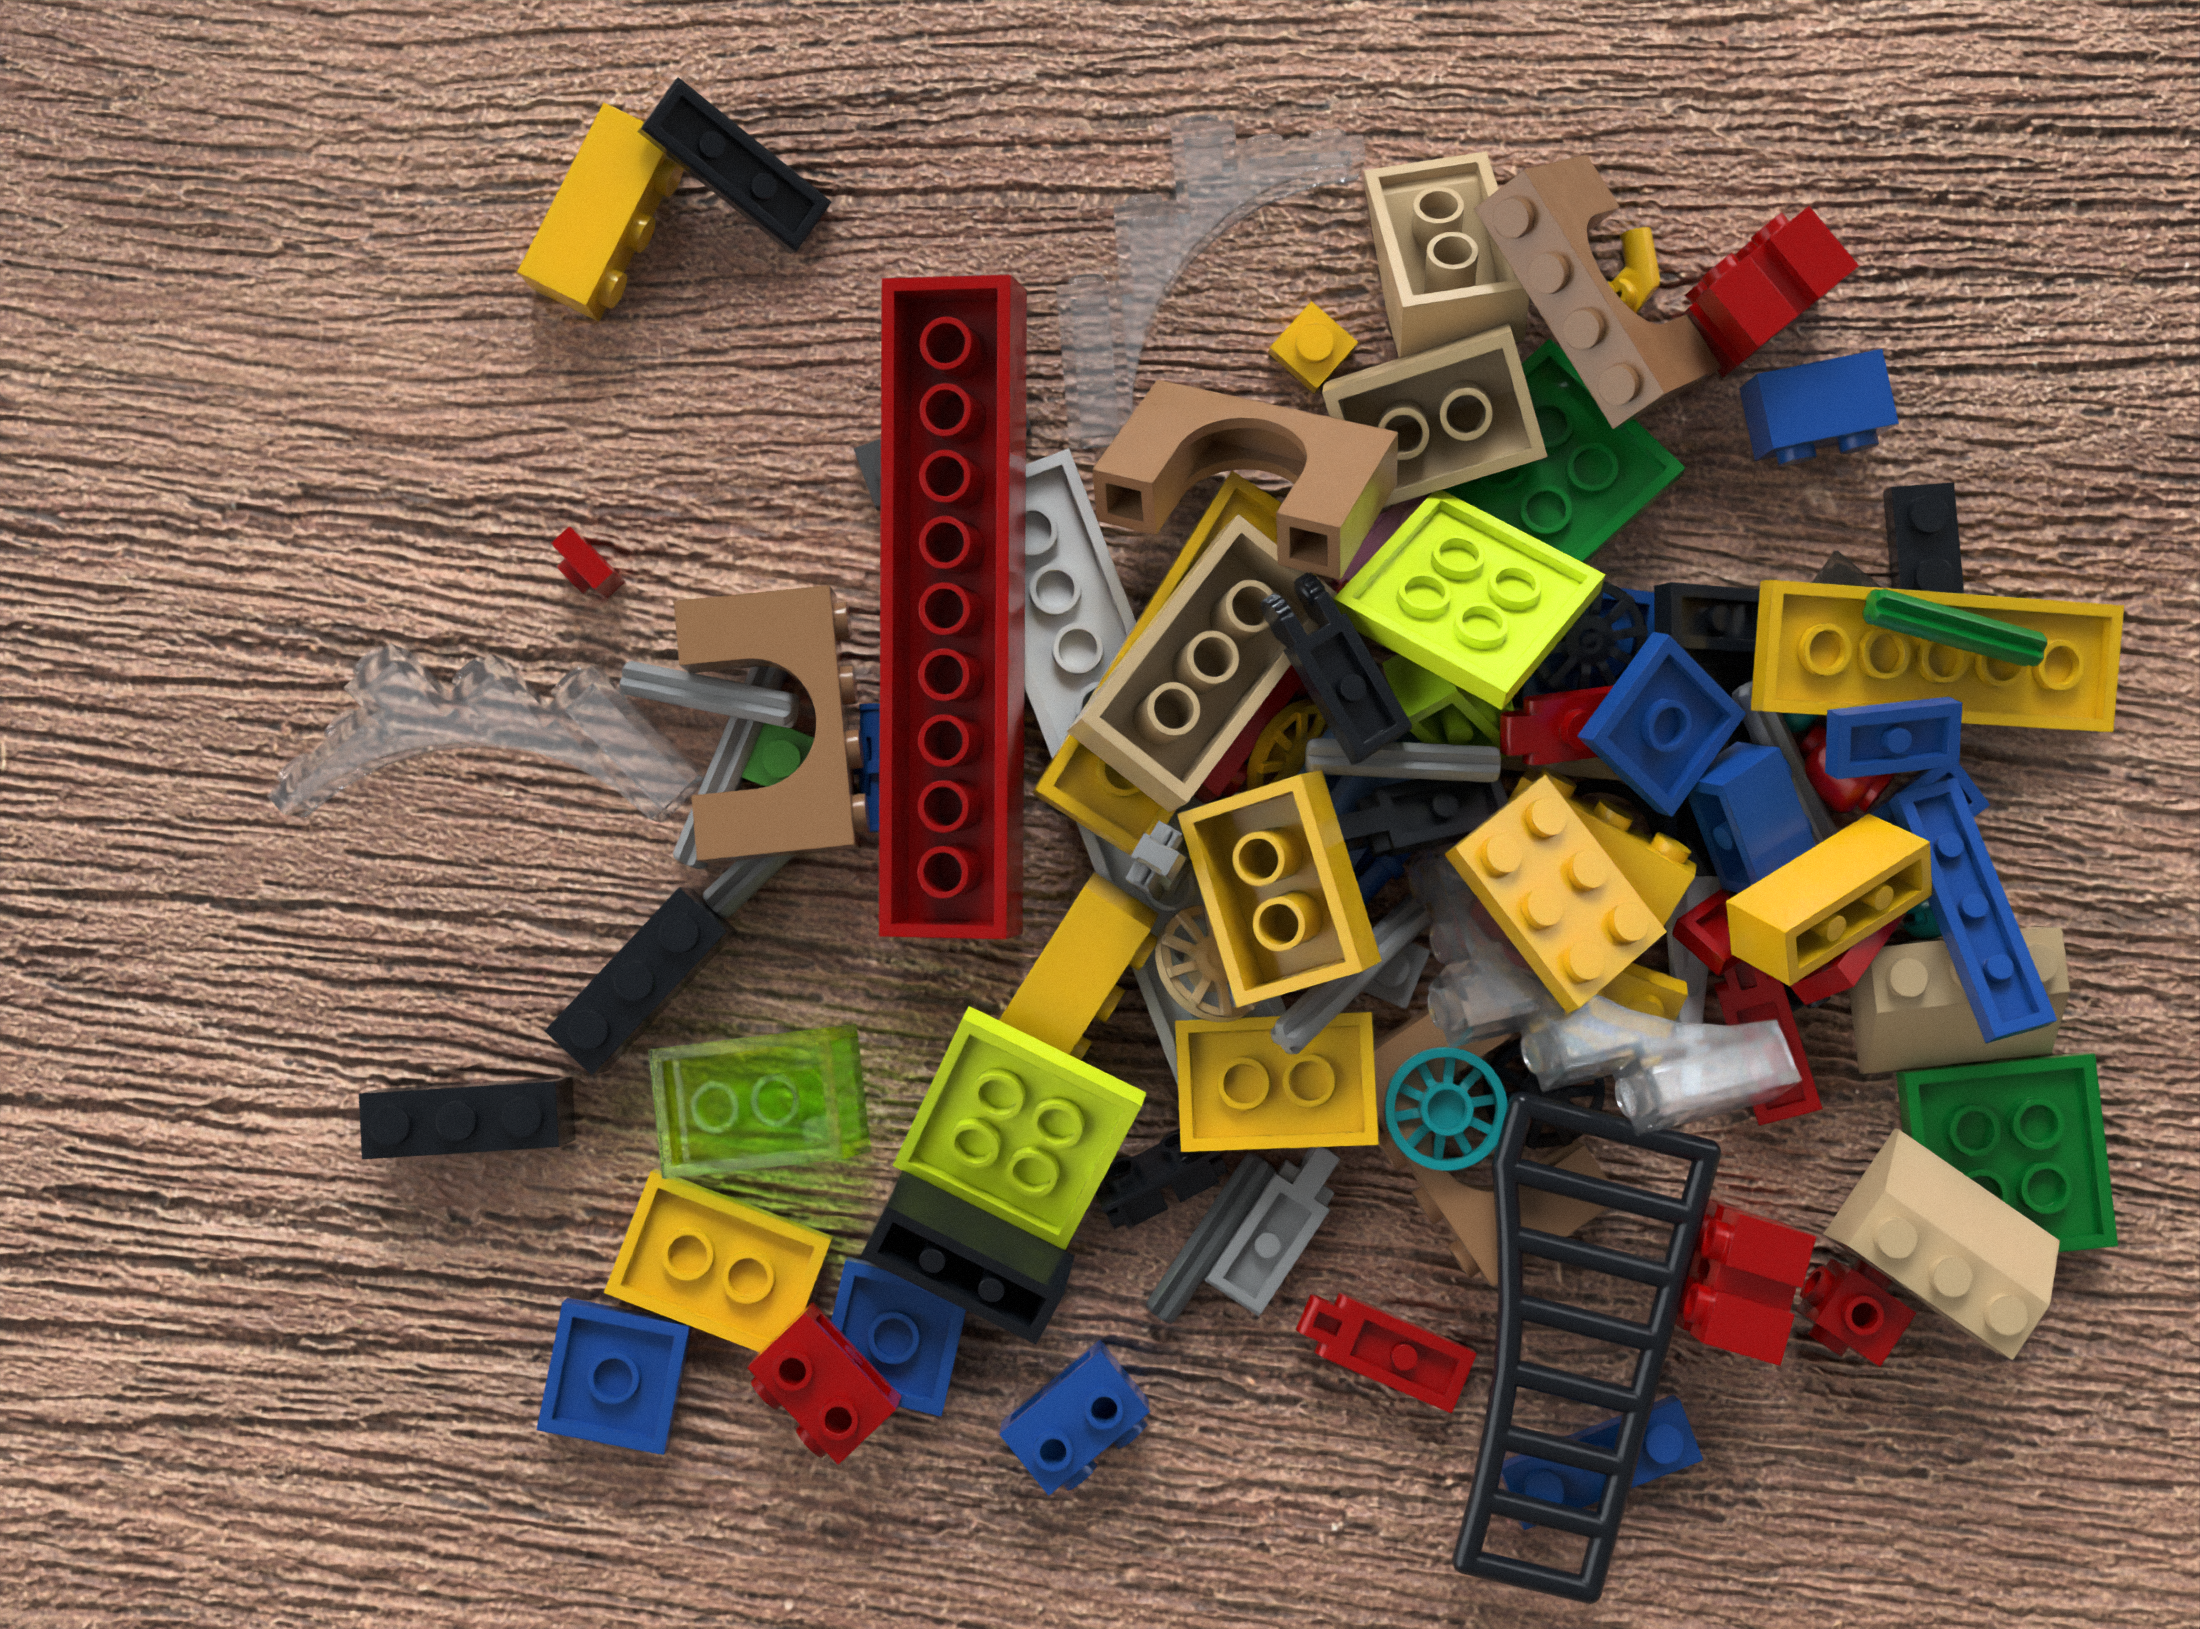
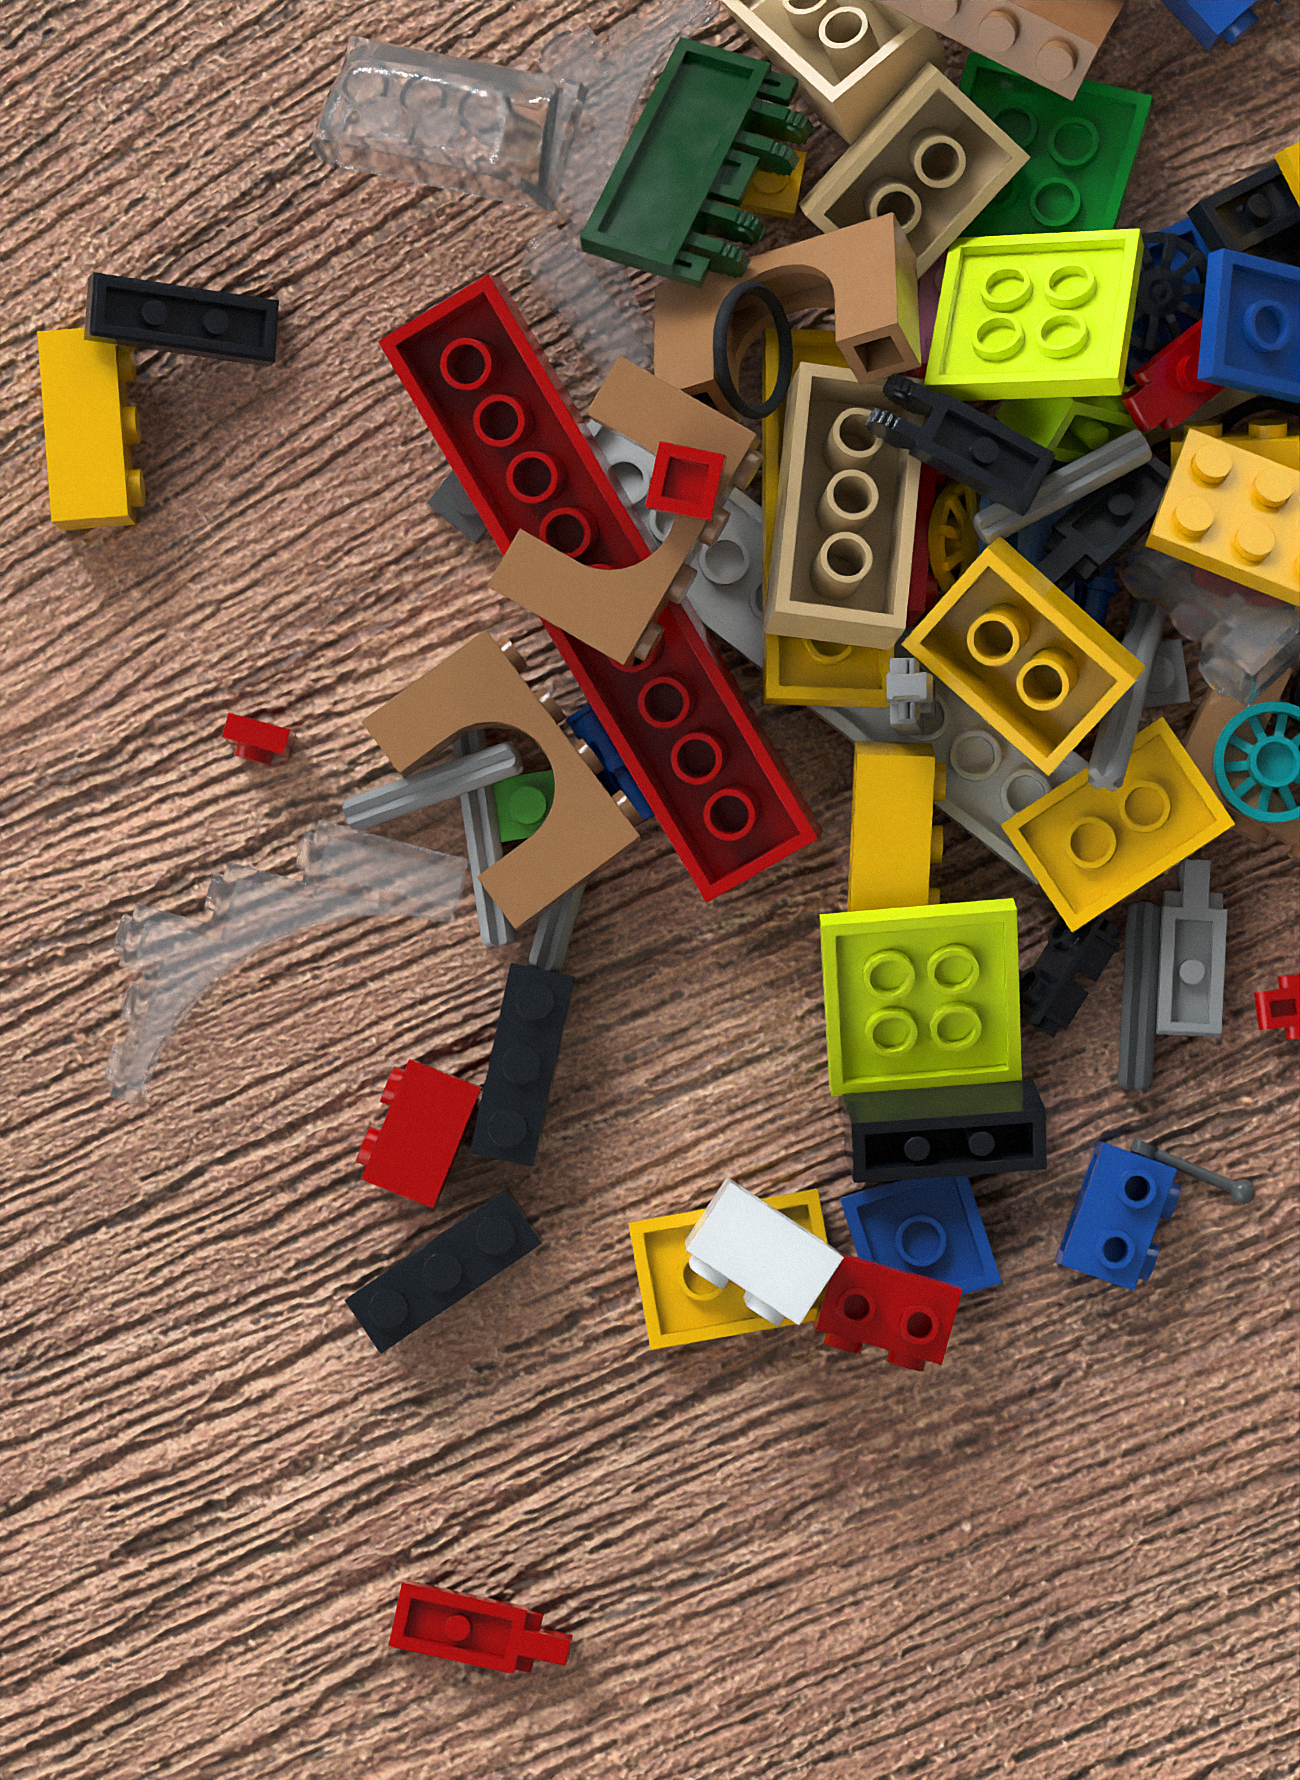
camera: 20 degrees left, 0 degrees up
(309, 1443) = (474, 1629): none -> red hinge
(517, 986) = (419, 1132): none -> red brick
(614, 1376) = (702, 1416): blue plate -> none
(733, 1277) = (762, 1253): none -> white brick
(759, 1102) = (685, 1107): clear neon green slope -> none
(1064, 133) = (450, 123): none -> clear windscreen
(1067, 556) = (686, 481): none -> red plate
(1097, 553) = (622, 606): none -> medium nougat arch
(1171, 464) = (720, 350): none -> black tyre
(1198, 1458) = (1241, 1191): none -> dark grey hinge
(1200, 964) = (996, 762): tan wheel -> none
(1257, 278) = (694, 149): none -> dark green hinge

